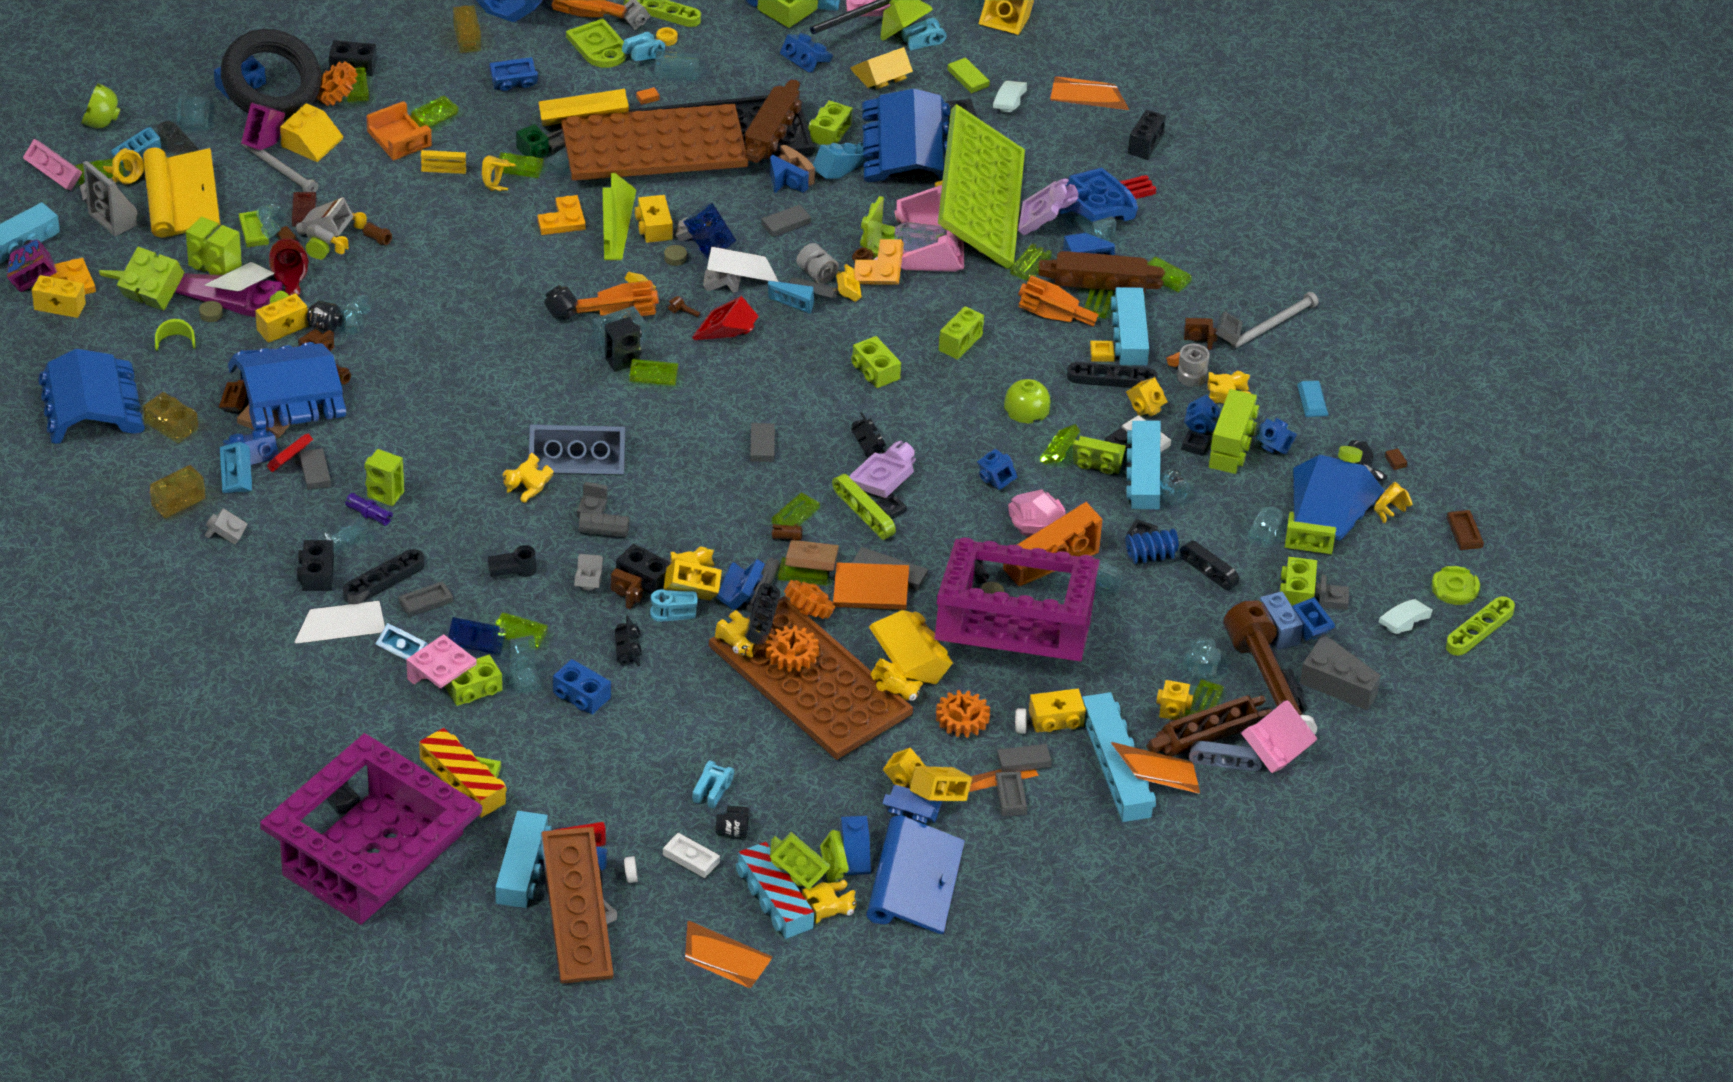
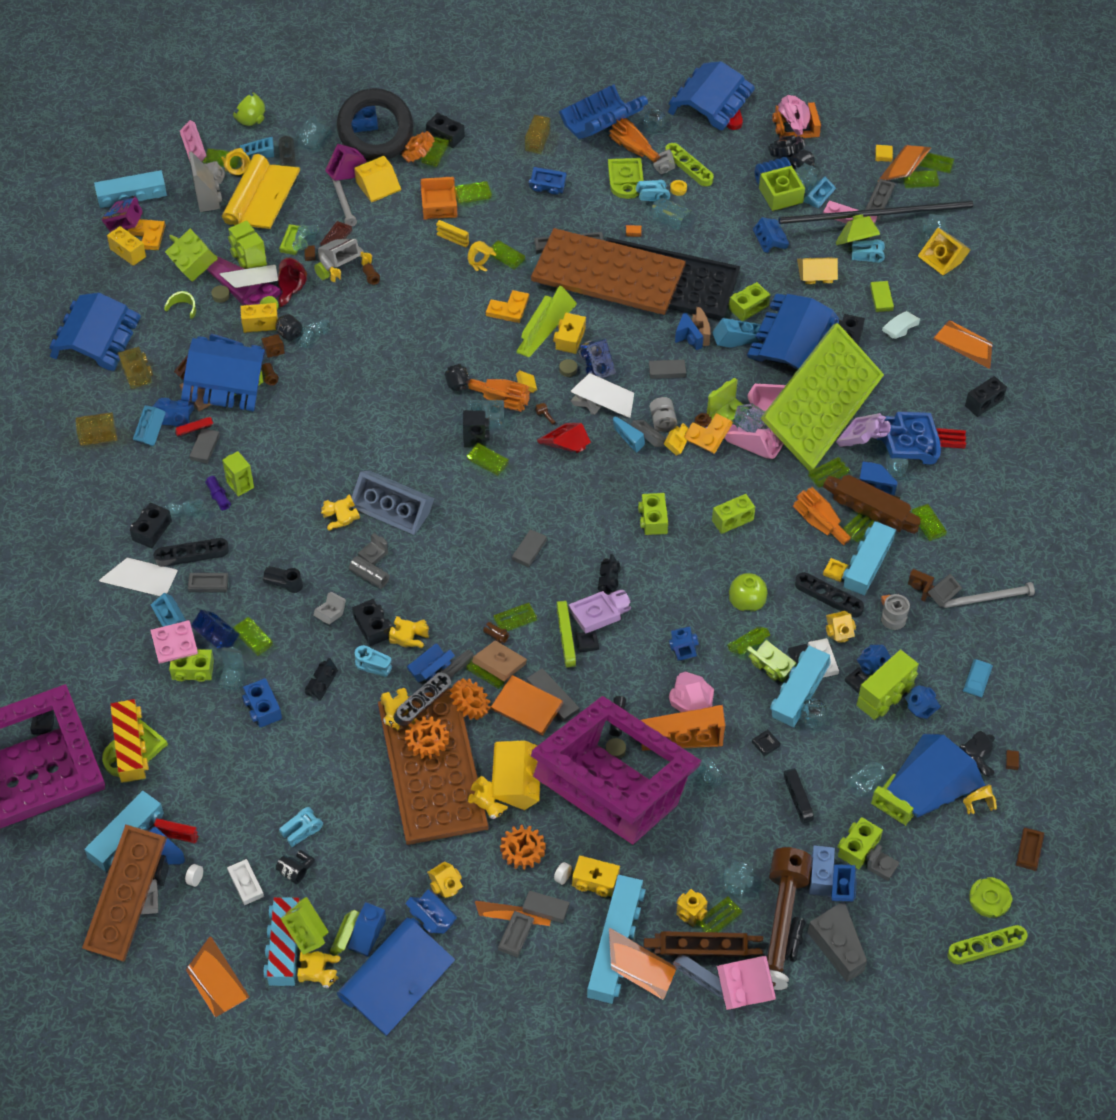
camera: 30 degrees right, 10 degrees up
(226, 525) = (113, 468): light grey bracket -> none
(532, 142) = (524, 240): dark green brick -> none
(583, 105) = (577, 224): yellow slope -> none
(626, 585) = (350, 632): reddish brown bracket -> none
(693, 577) = (394, 647): yellow brick -> none
(772, 121) = (702, 285): reddish brown hinge -> none
(940, 783) = (459, 905): yellow brick -> none
(1152, 545) = (761, 760): blue piece -> none
(1221, 384) = (909, 640): yellow animal -> none
(1350, 454) = (968, 744): lime tile -> none
(1404, 615) = (927, 908): light aqua slope -> none

